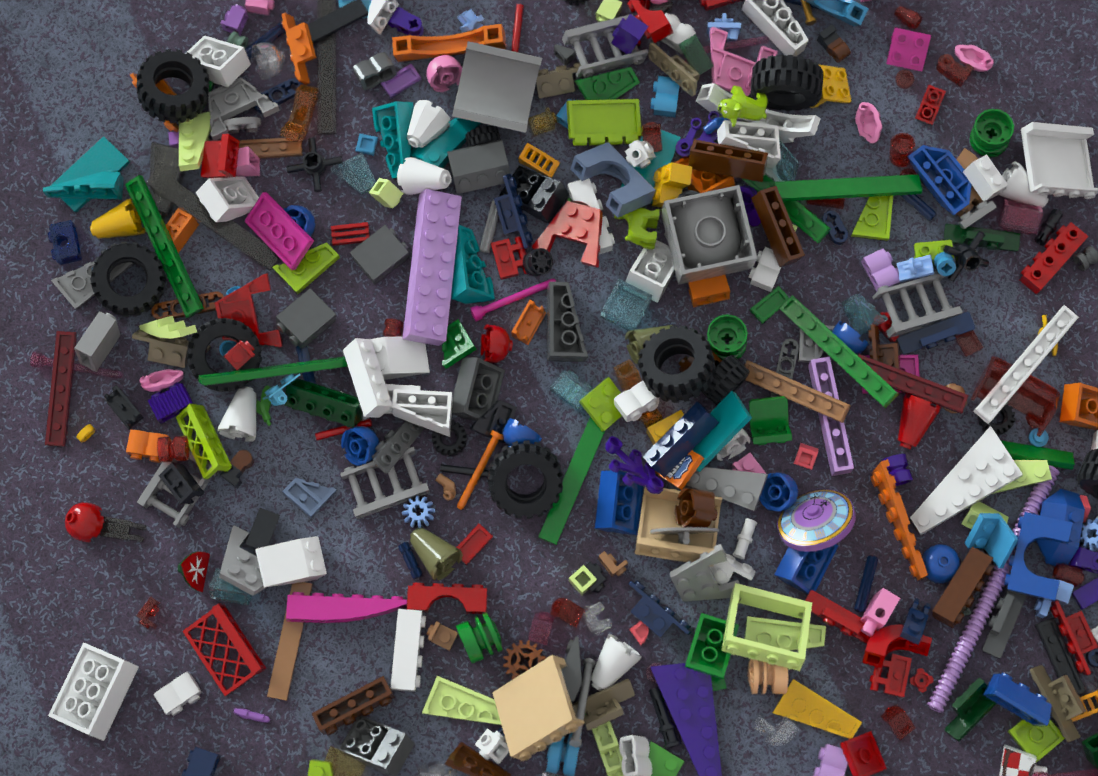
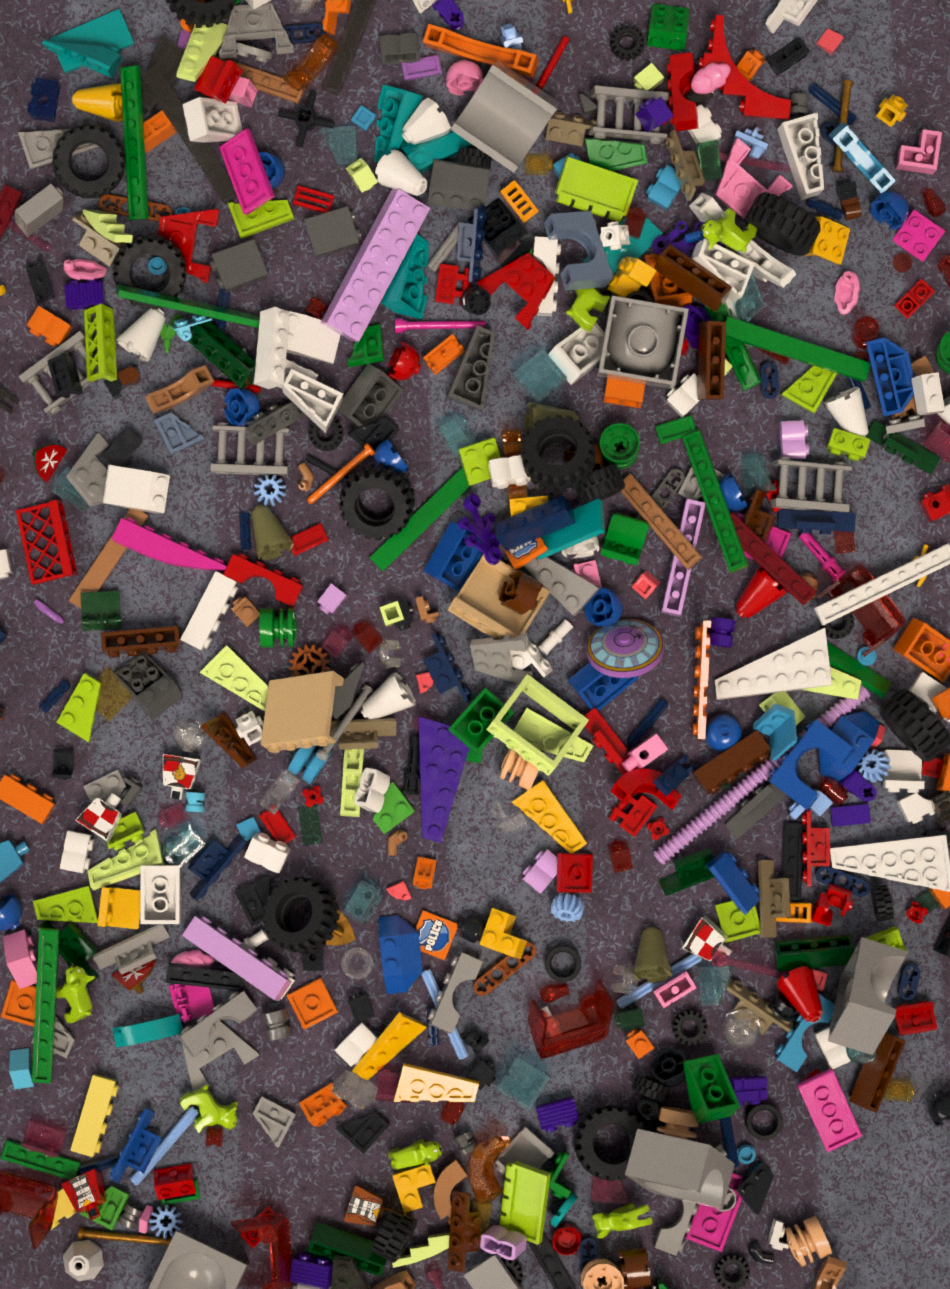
camera: 20 degrees right, 10 degrees up
(170, 449) = (69, 341): clear red wheel -> none
(239, 354) = (163, 278): red bracket -> none
(297, 454) = (186, 388): none -> medium nougat arch
(302, 693) = (100, 610): none -> dark green hinge
(519, 590) = (331, 599): none -> lavender brick
(683, 532) = (498, 611): light grey shield -> none
(820, 59) = (825, 208): none -> dark blue axle
(875, 34) = (890, 208): none -> blue cylinder
(915, 268) = (823, 452): light blue hips -> none
(920, 223) = (849, 411): none -> white cone
(941, 260) = (852, 459): dark azure wheel -> none
(963, 370) = (830, 563): none -> dark pink pin
(966, 256) = (877, 460): black bar -> none

